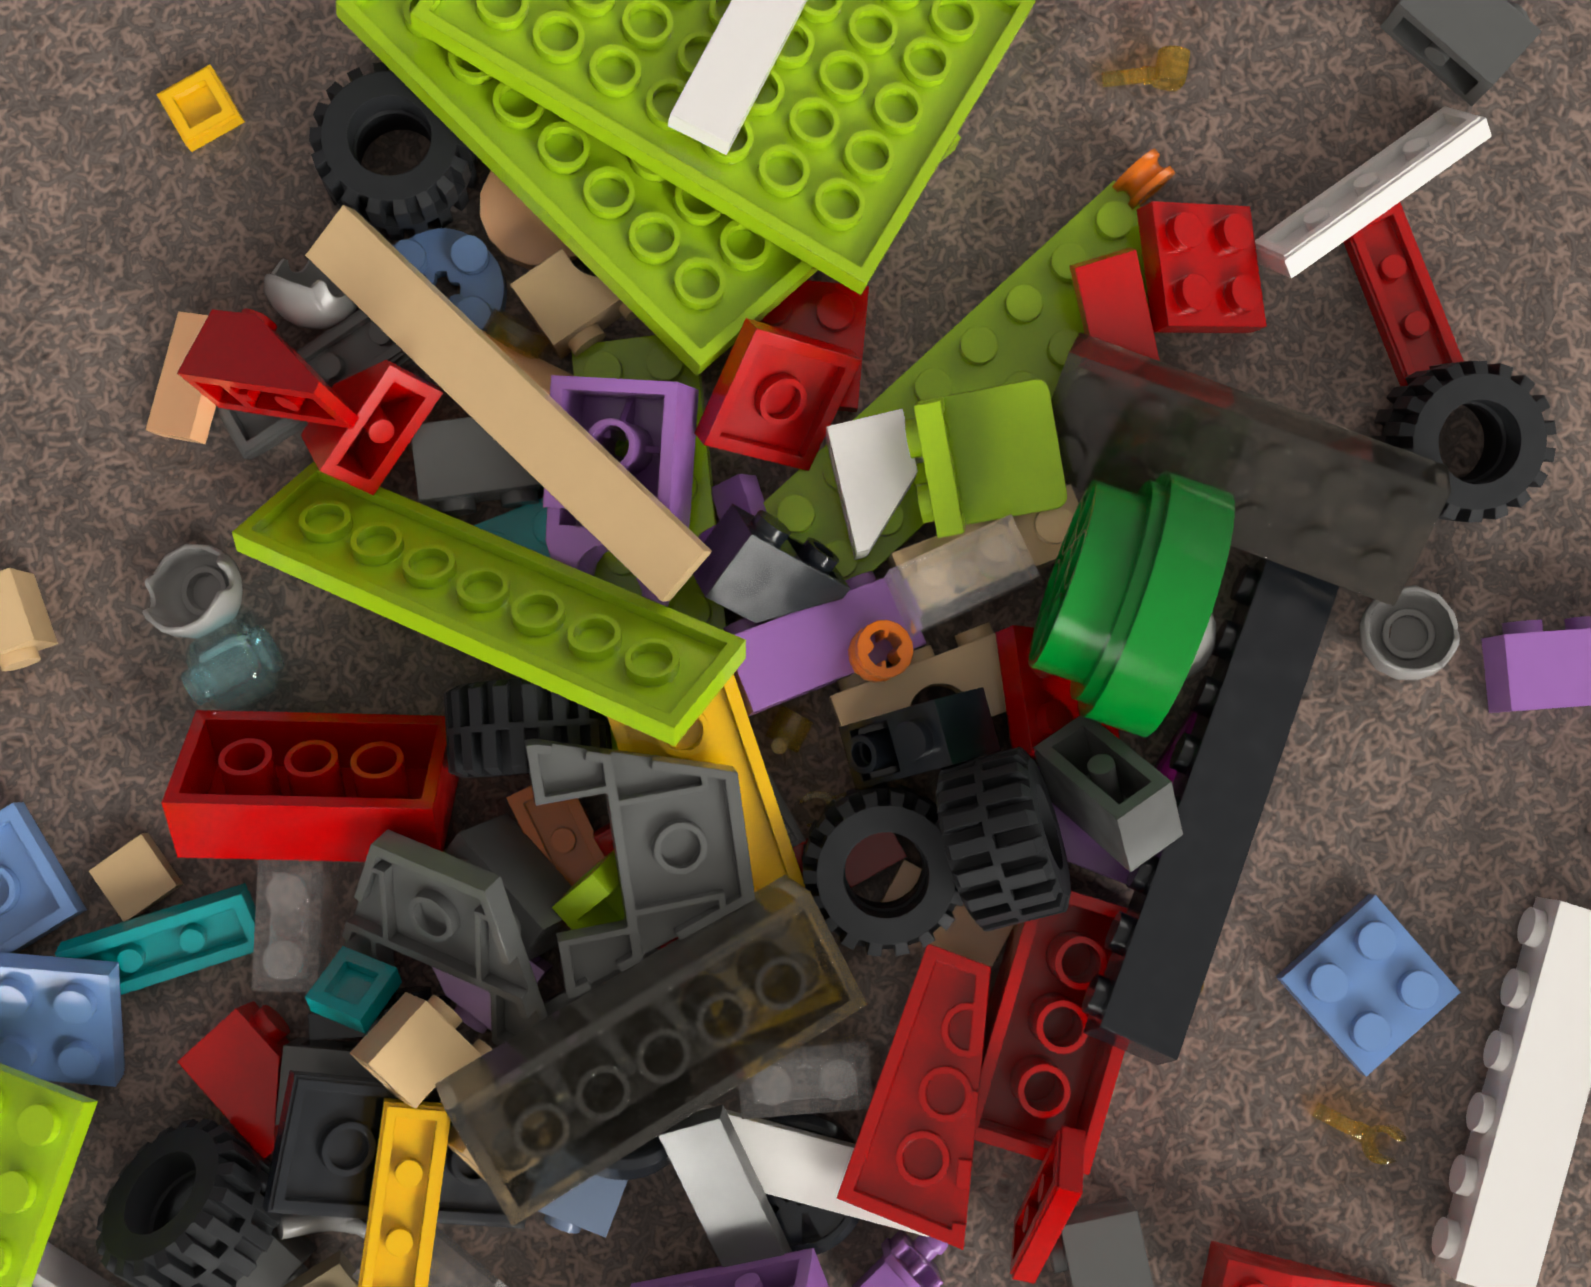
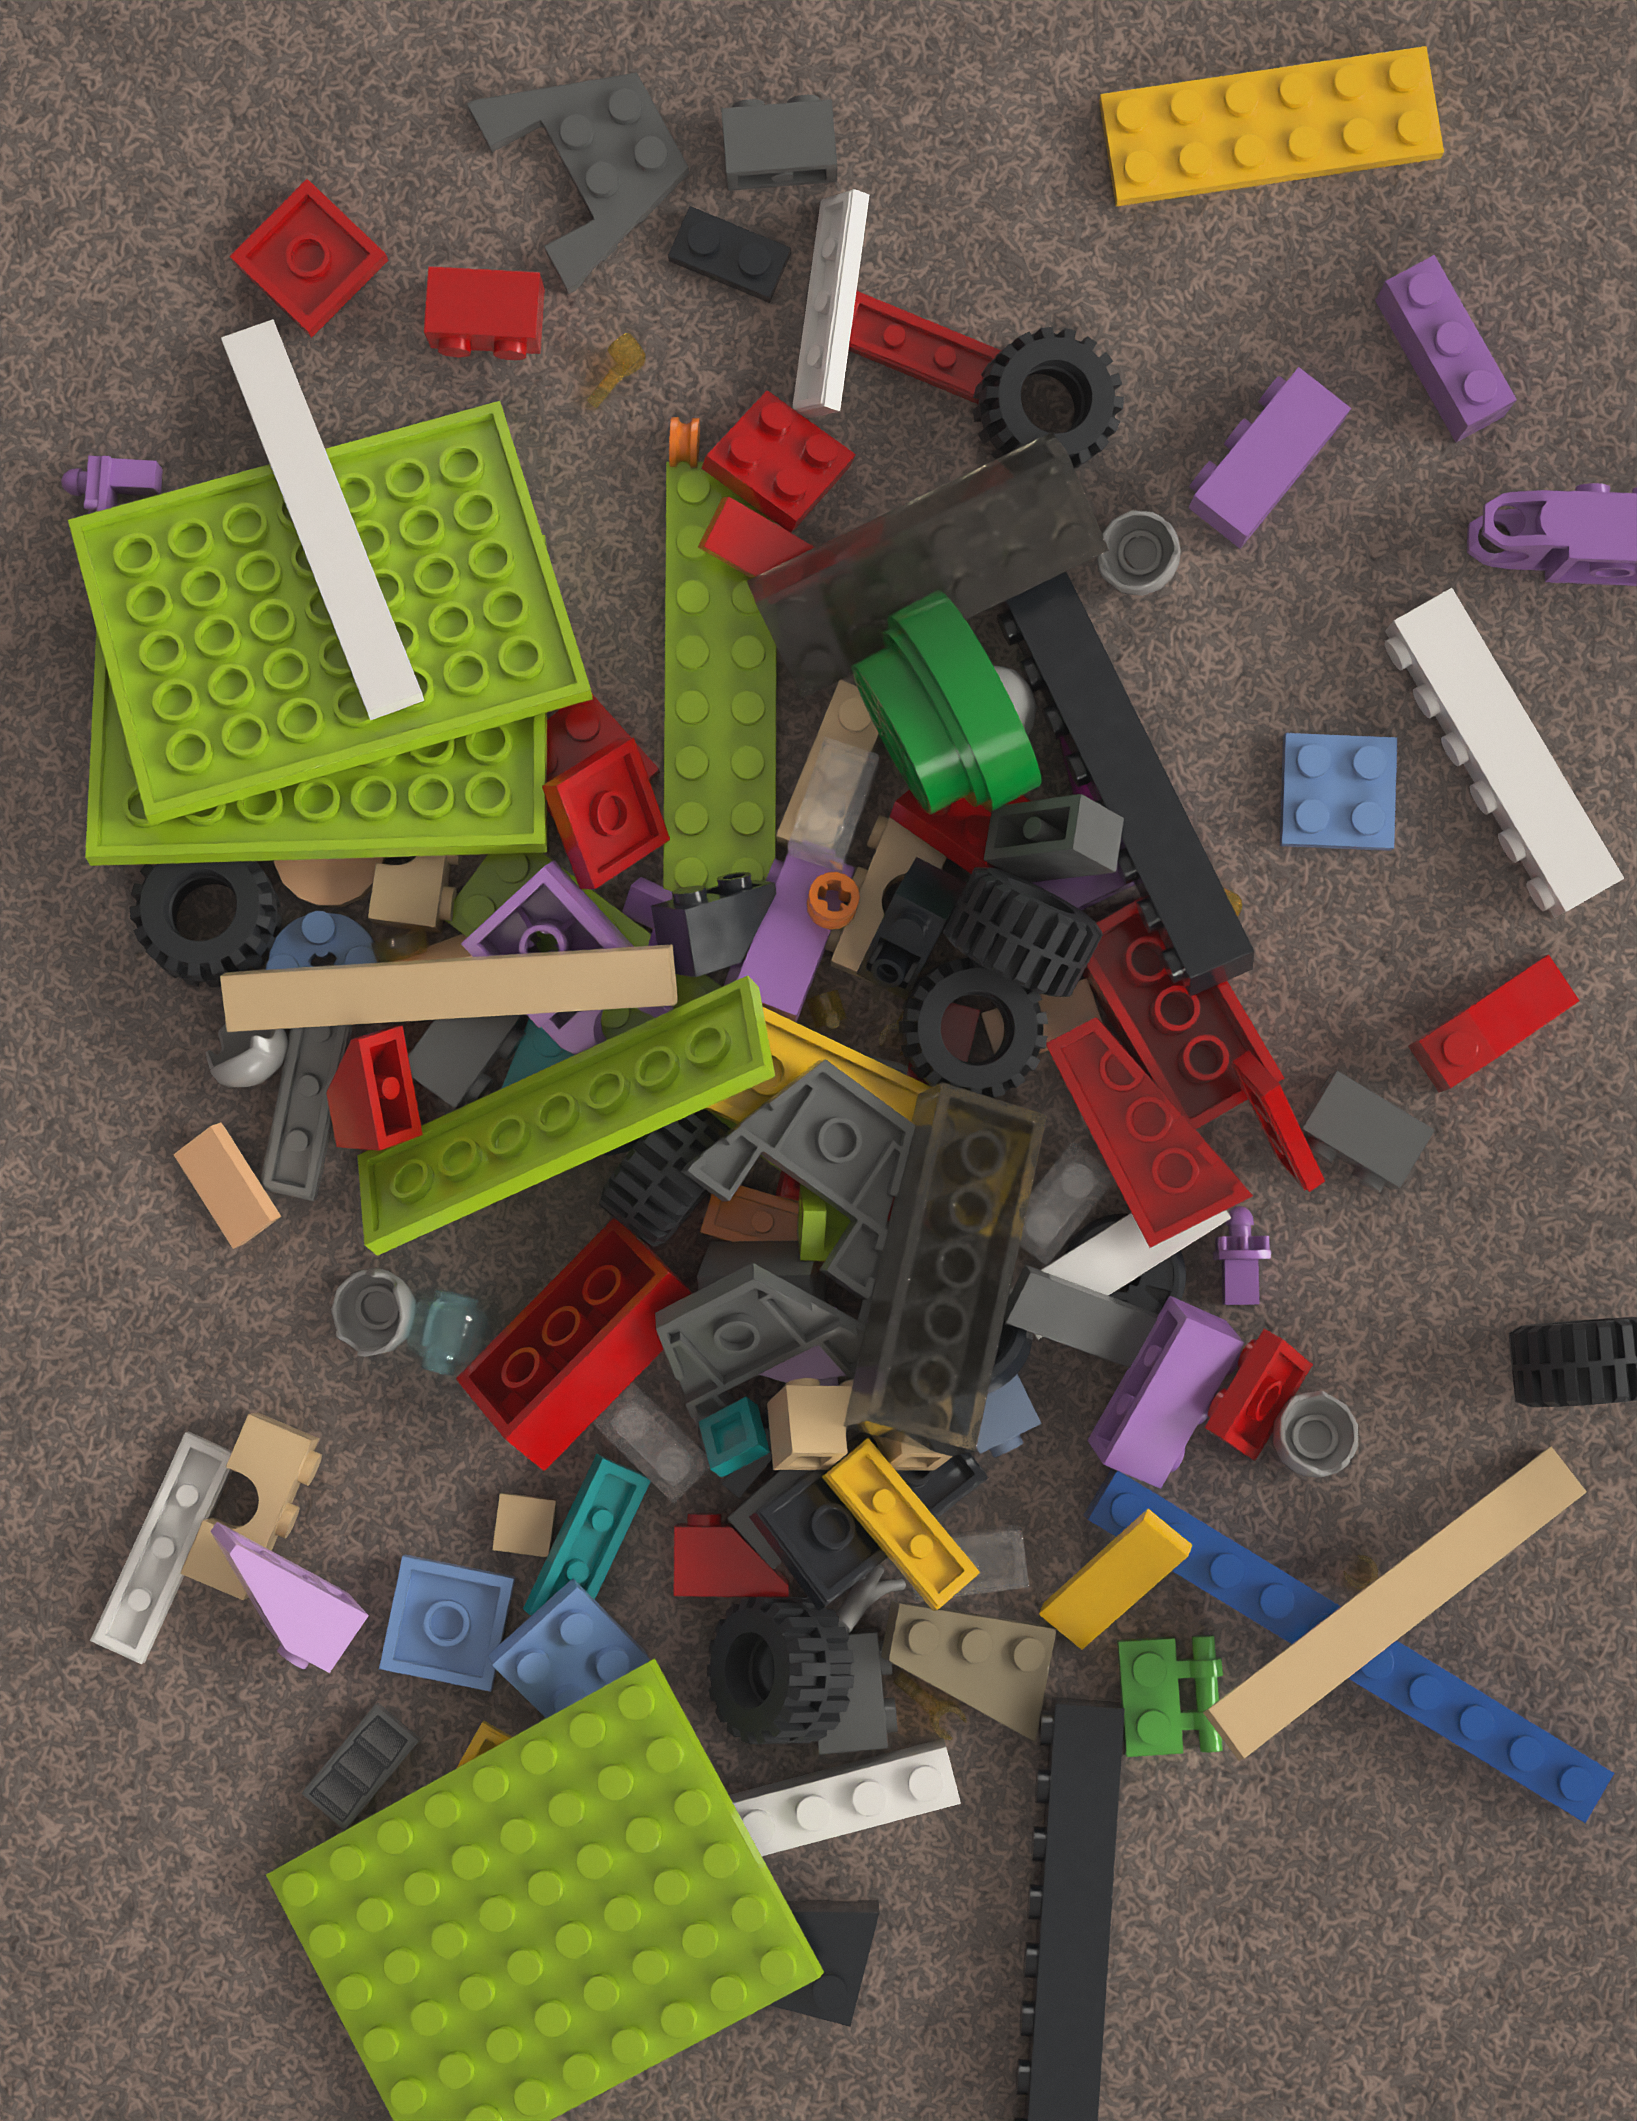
camera: 40 degrees left, 0 degrees up
(200, 108) = (47, 1015): yellow tile -> none
(251, 369) = (268, 1134): red slope -> none
(870, 473) = (713, 798): white slope -> none
(987, 455) = (771, 715): lime bracket -> none
(1330, 74) = (729, 254): none -> black plate
(1360, 1132) = (1425, 885): clear yellow hand -> none

